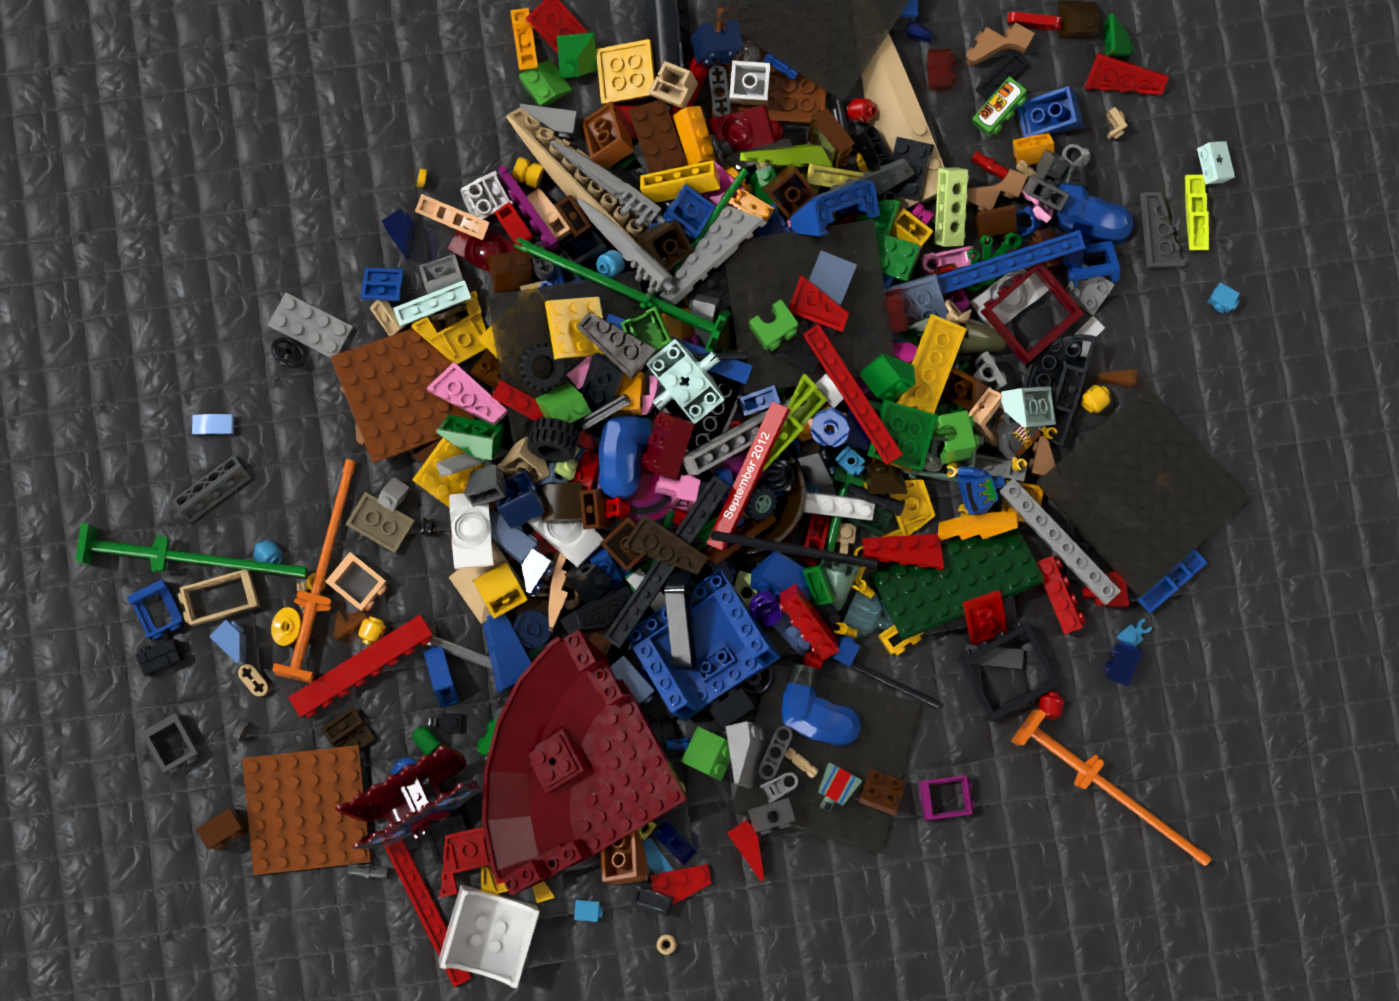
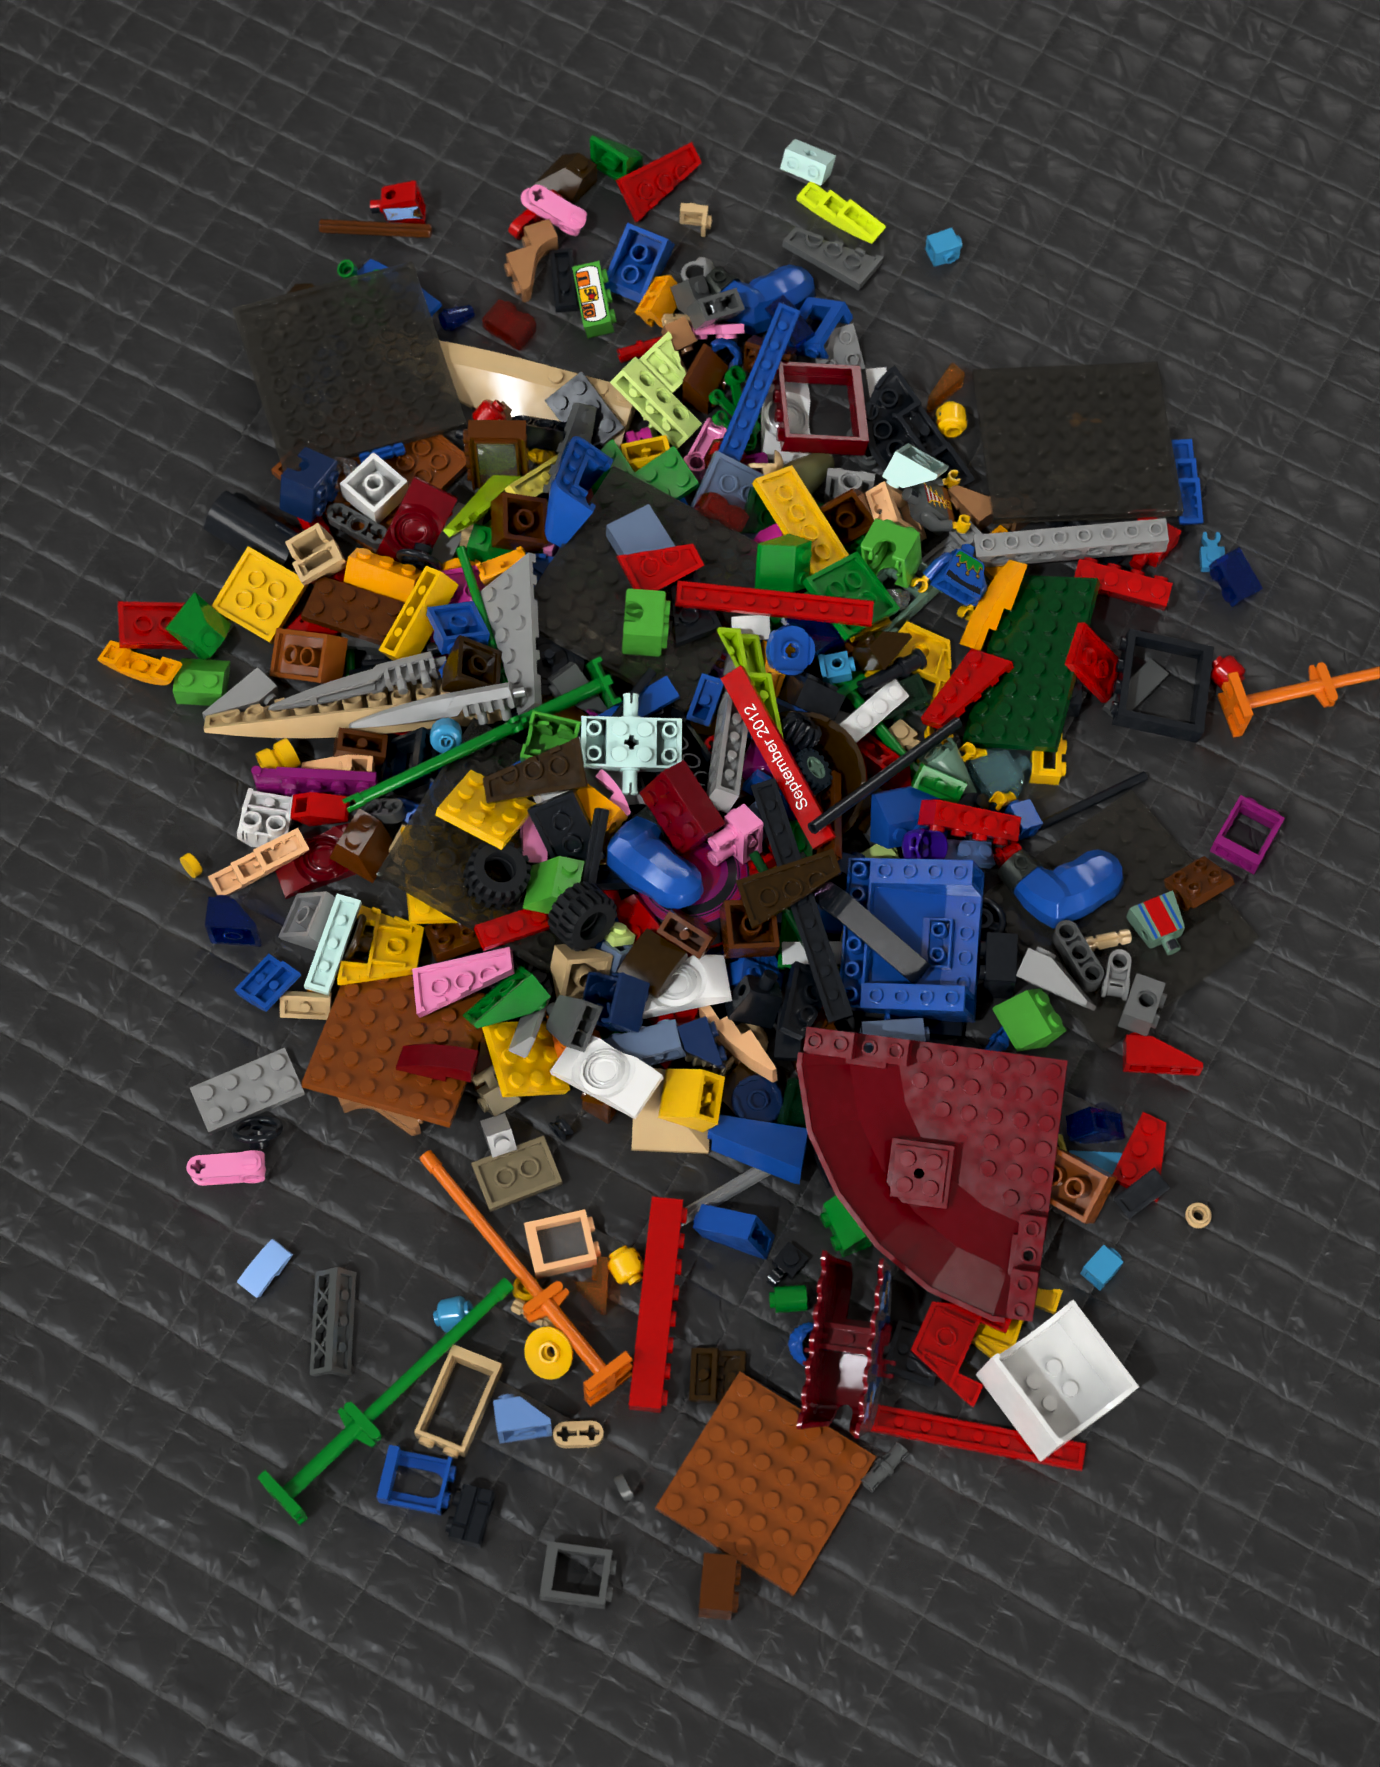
camera: 50 degrees left, 15 degrees down
(252, 353) = (228, 1168): none -> bright pink piece
(403, 425) = (438, 1061): none -> dark red slope
(410, 470) = (490, 1094): none -> dark tan brick
(617, 508) = (704, 910): red brick -> none
(982, 190) = (665, 363): none -> yellowish green wing
(1045, 40) = (553, 207): none -> bright pink piece

